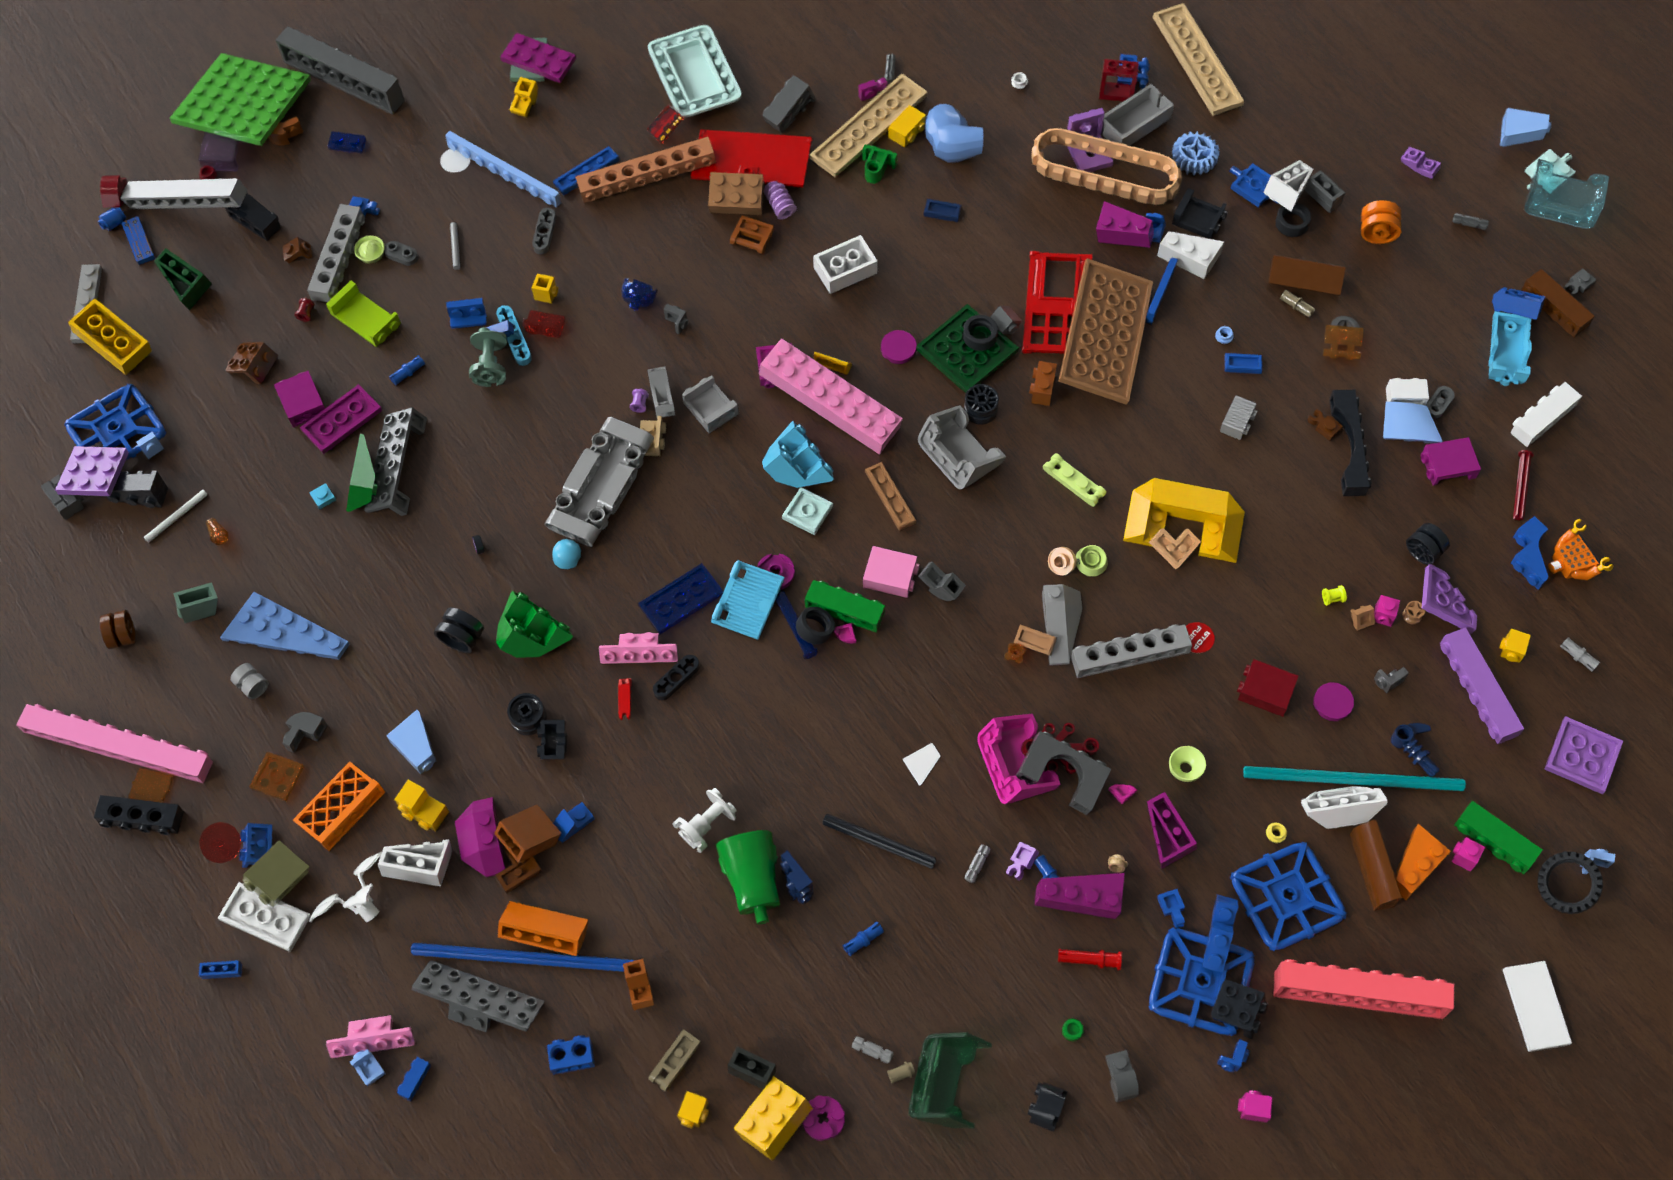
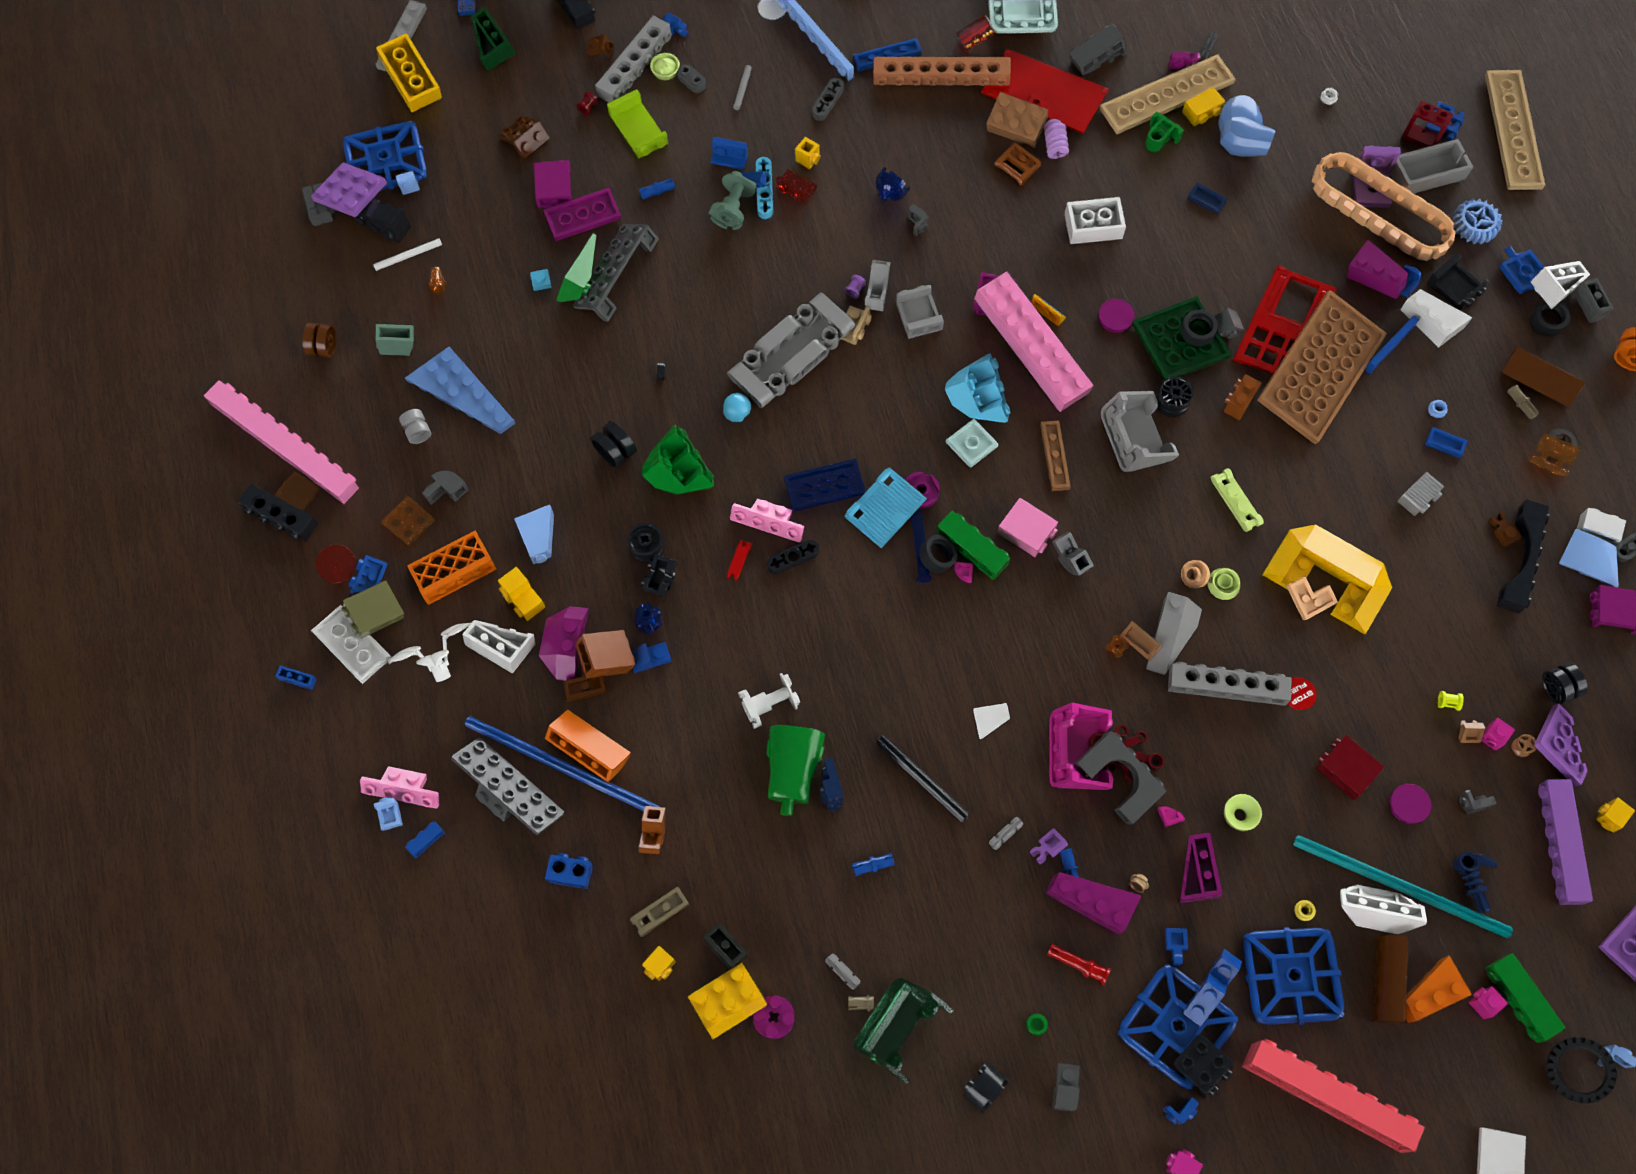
camera: 20 degrees right, 5 degrees up
(556, 790) = (647, 618): none -> clear blue brick

